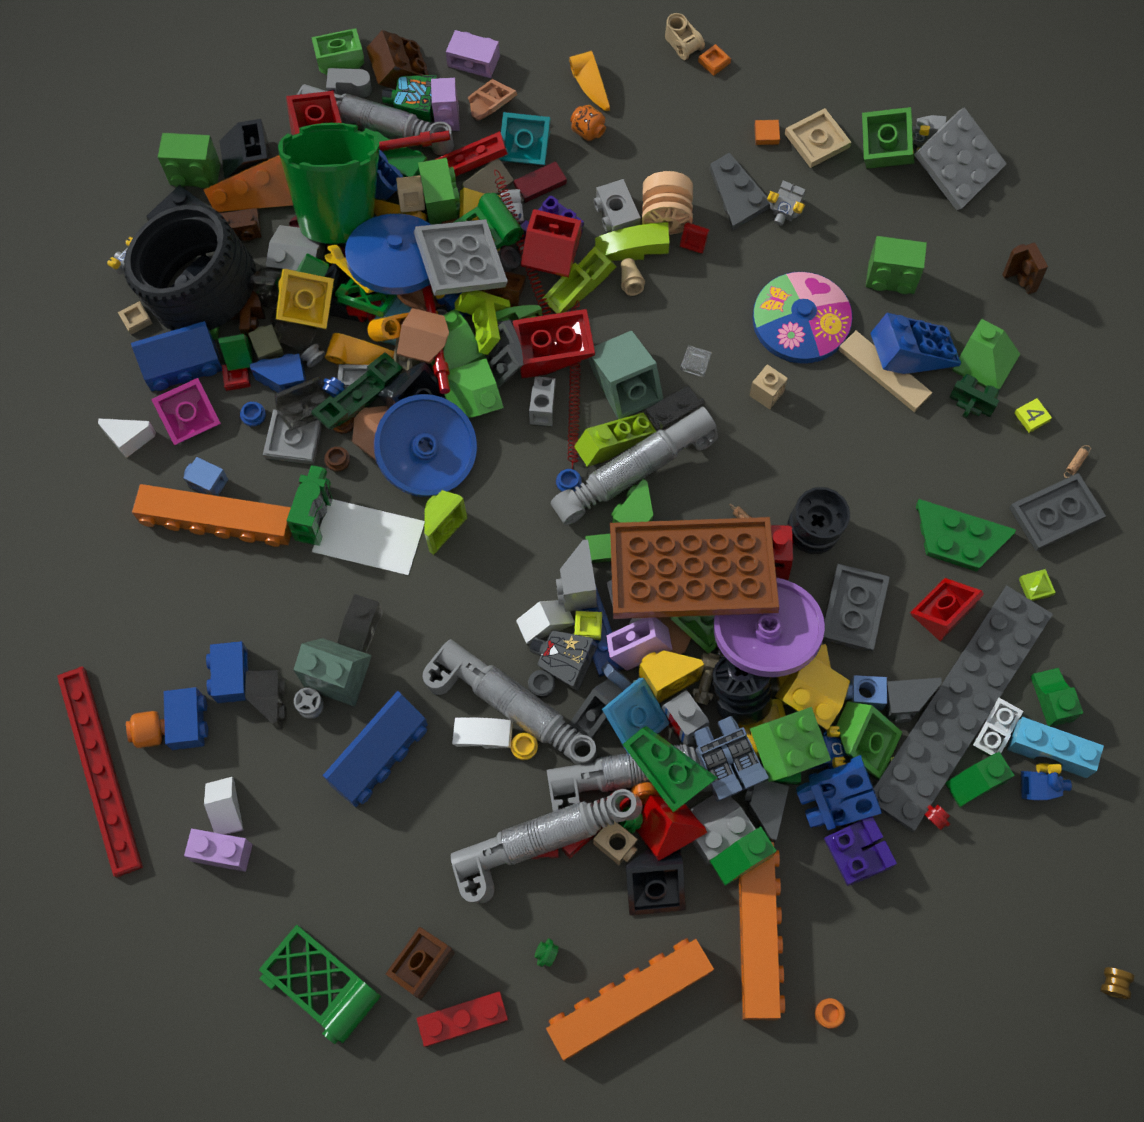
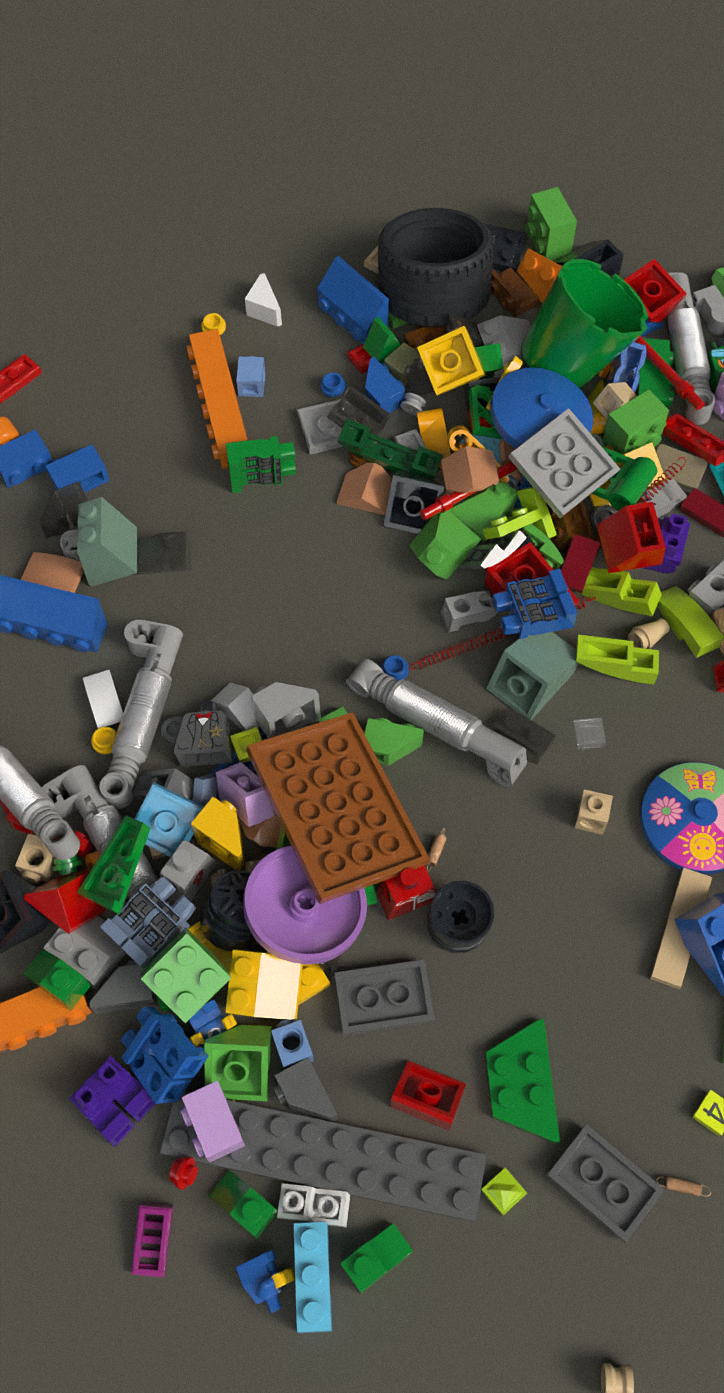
camera: 65 degrees right, 5 degrees down
(124, 490) = (213, 321): none -> yellow plate
(186, 411) = (307, 333): dark pink slope -> none
(329, 735) = (53, 571): none -> nougat slope
(333, 386) = (388, 430): blue plate -> none
(337, 459) = (321, 468): reddish brown plate -> none
(369, 536) = (259, 528): white sticker -> none
(425, 445) = (365, 528): blue dish -> none
(442, 518) = (295, 574): lime slope -> none
(545, 294) = (579, 562): none -> dark red tile
(580, 349) = (536, 606): none -> blue hips
(613, 438) = (456, 686): lime slope -> none
(646, 306) = (618, 658): none -> lime slope
(912, 774) = (212, 1122): none -> lavender brick
(957, 851) = (146, 1269): none -> magenta slope
(973, 400) = (699, 1023): dark green hips -> none

